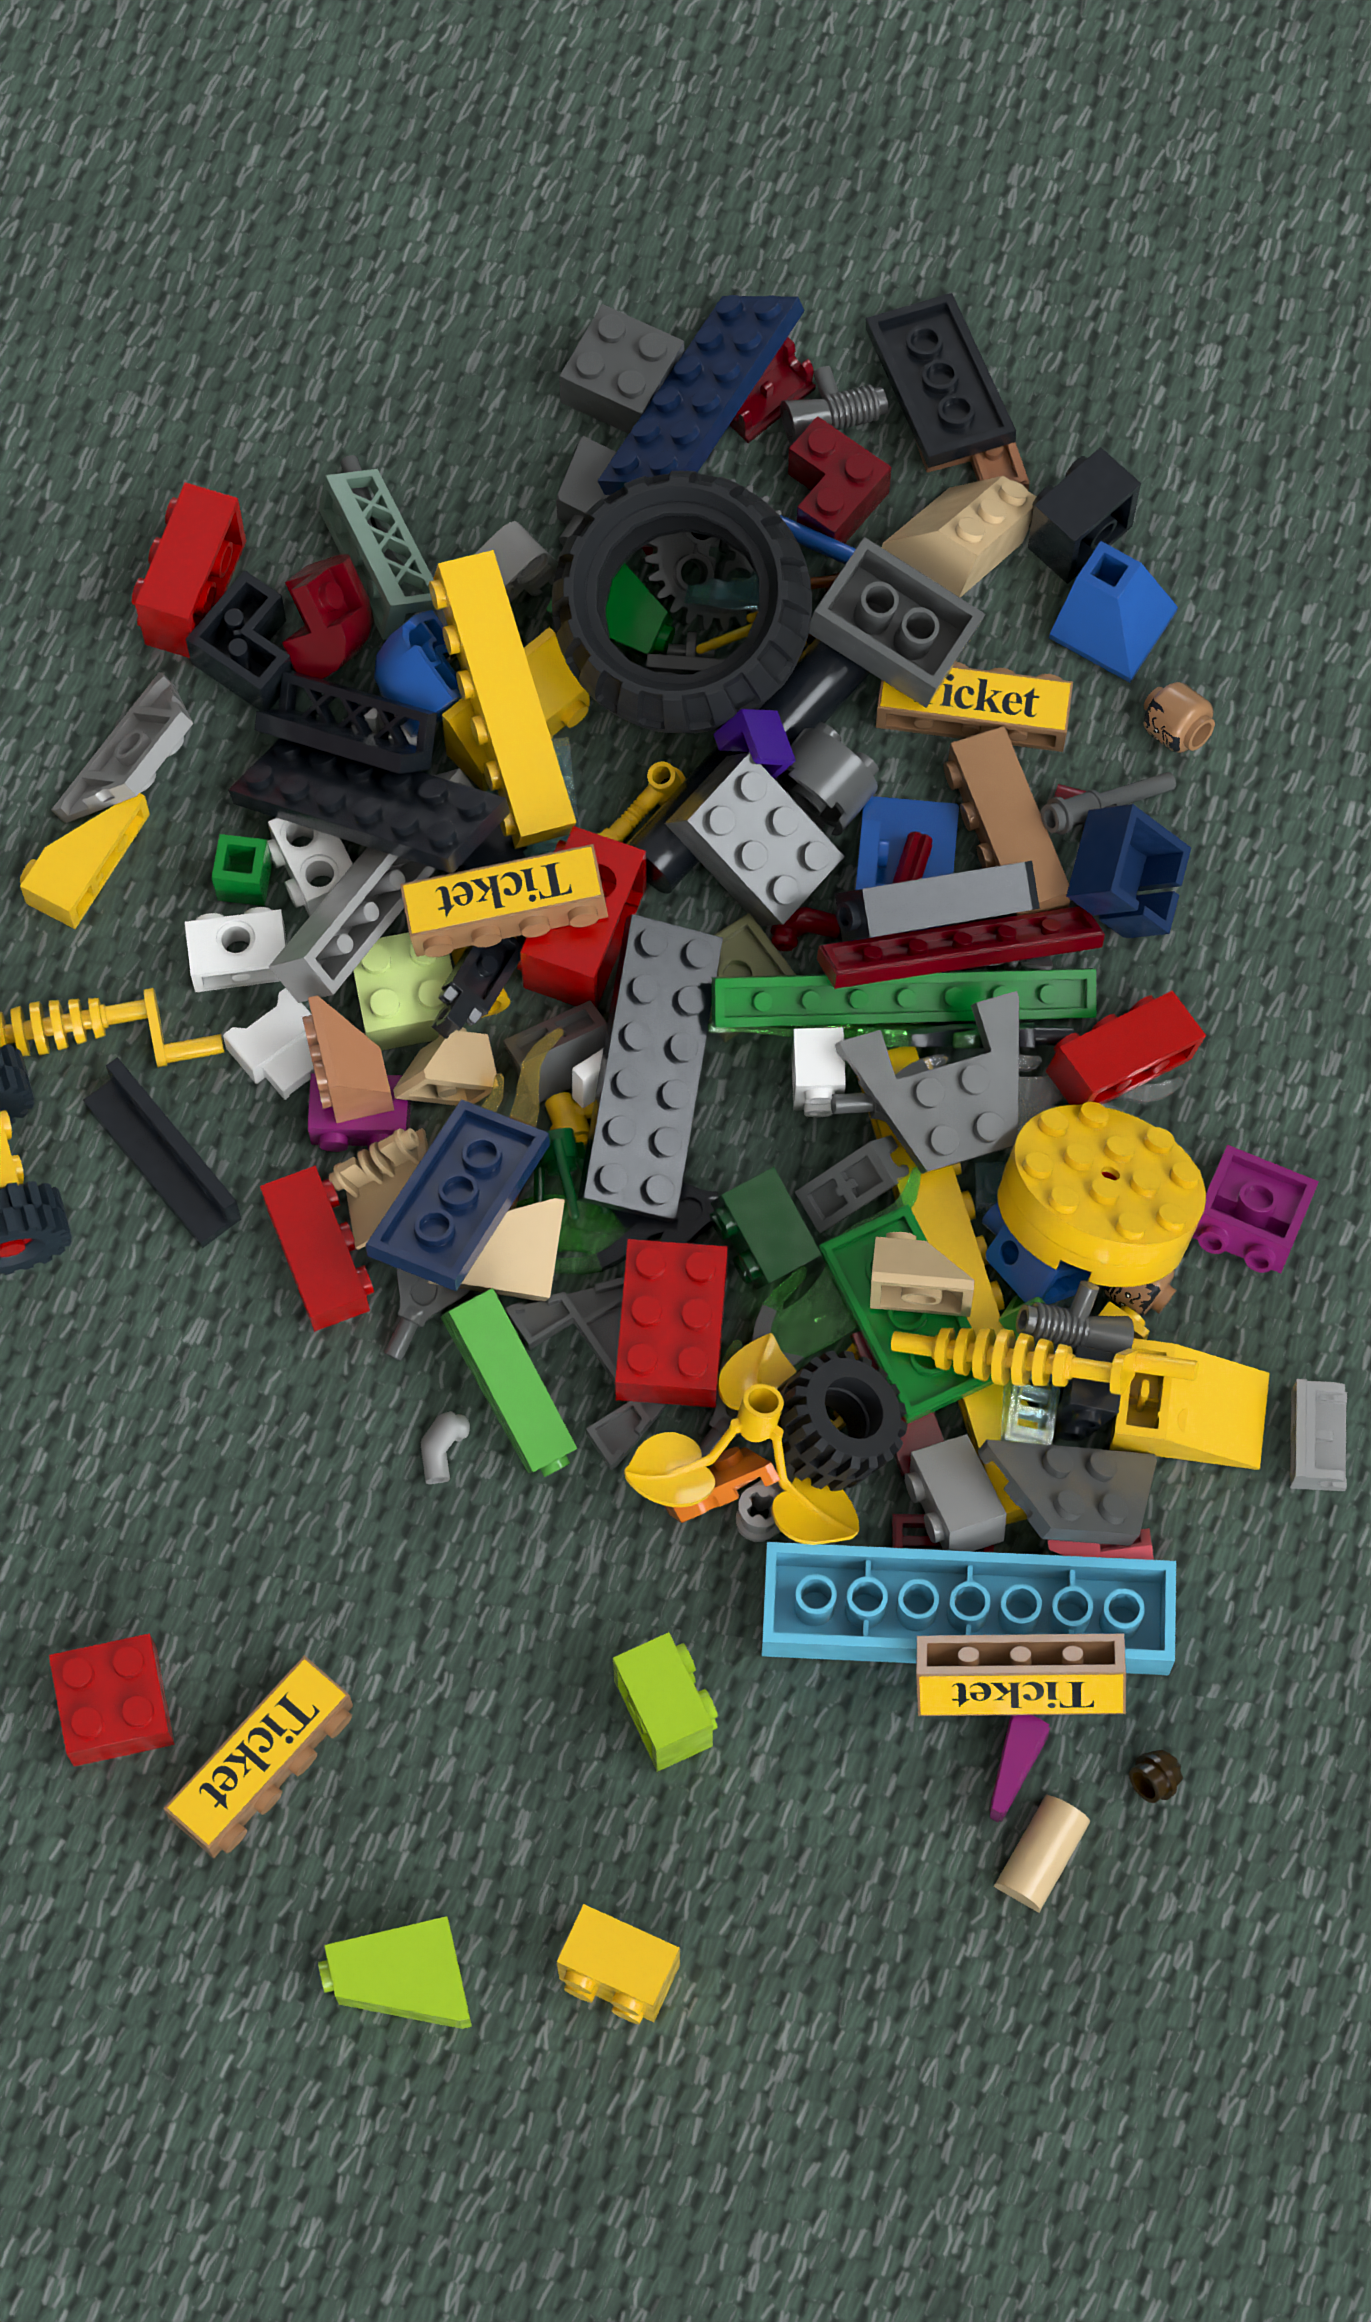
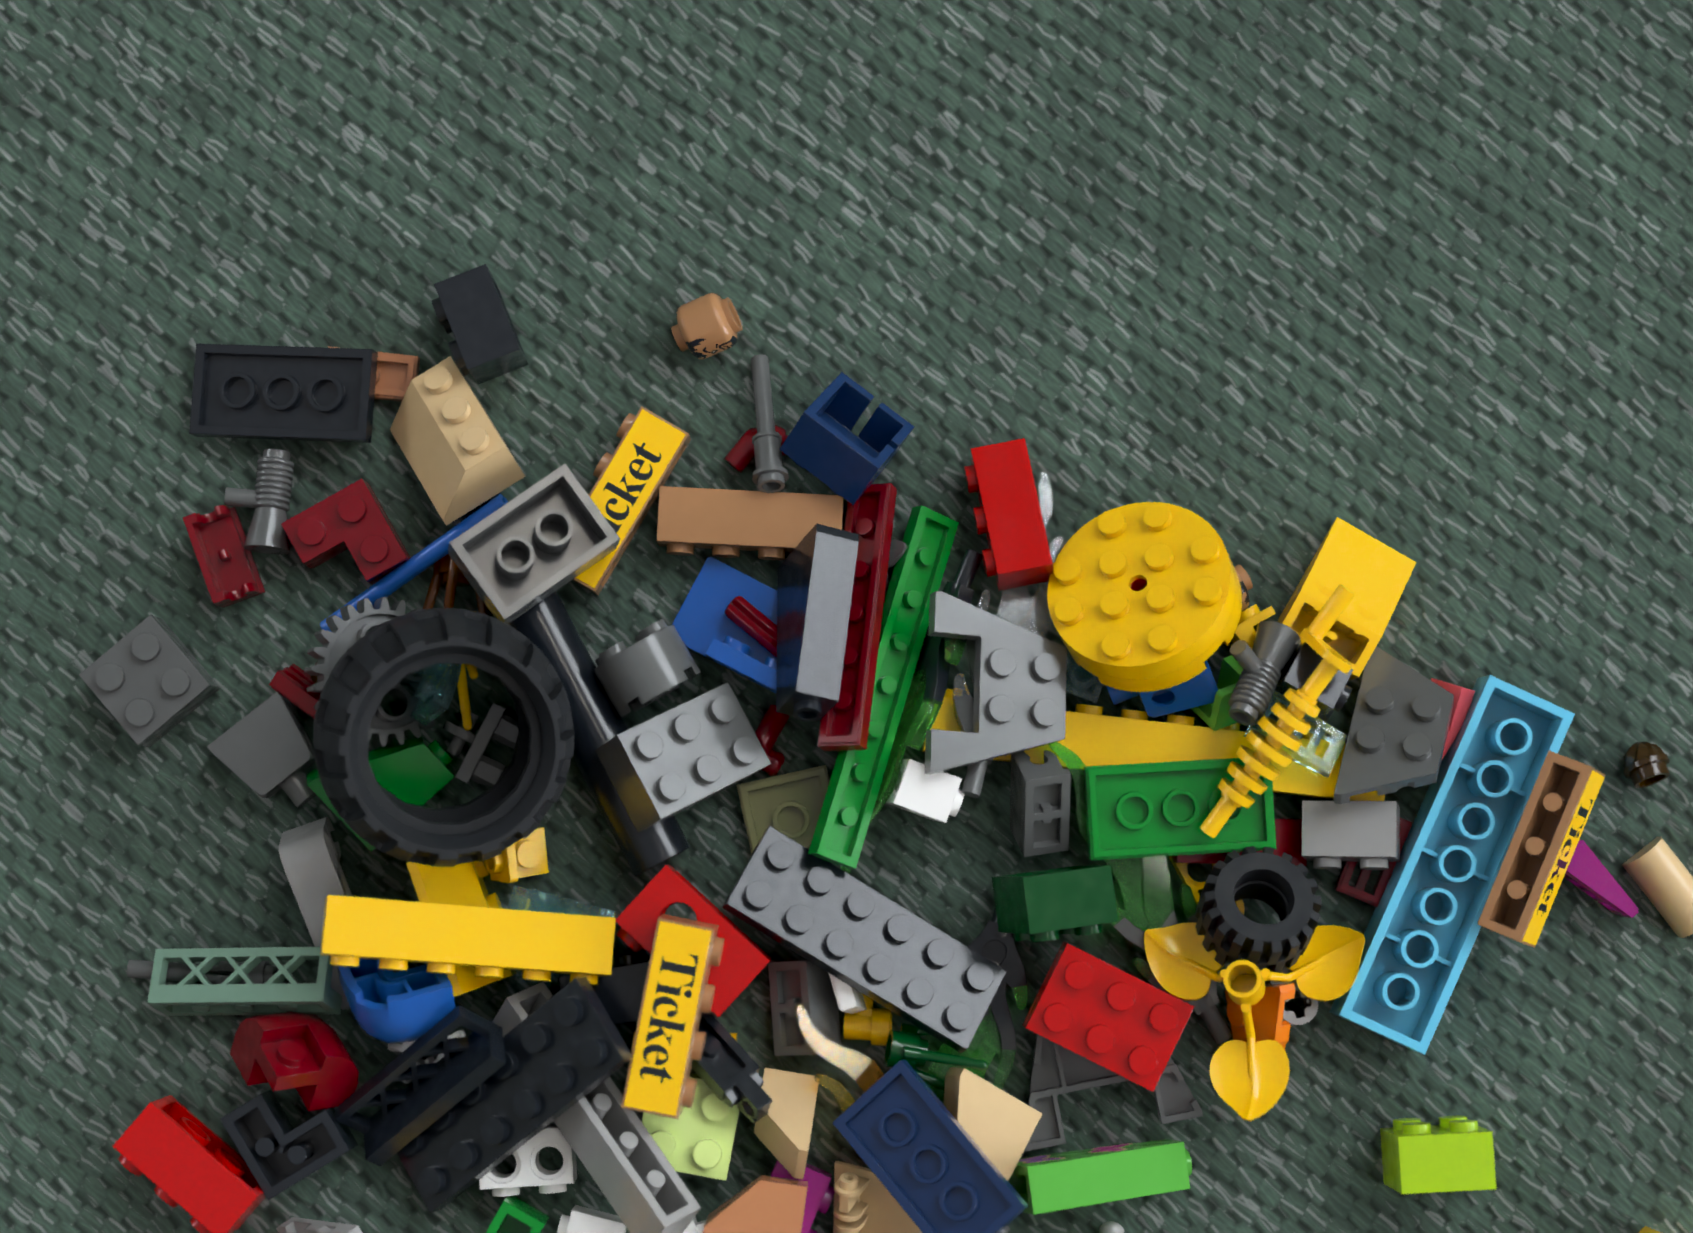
camera: 75 degrees left, 15 degrees up
(597, 740) = (521, 859): none -> yellow bracket
(652, 795) = (594, 835): yellow brick -> none
(704, 388) = (216, 622): dark blue plate -> none
(759, 734) = (601, 714): dark purple panel -> none
(917, 1278) = (1168, 794): tan slope -> none
(1113, 613) = (584, 339): blue slope -> none
(1254, 1210) = (1192, 463): magenta plate -> none
(1318, 1436) = (1409, 502): light grey hinge -> none

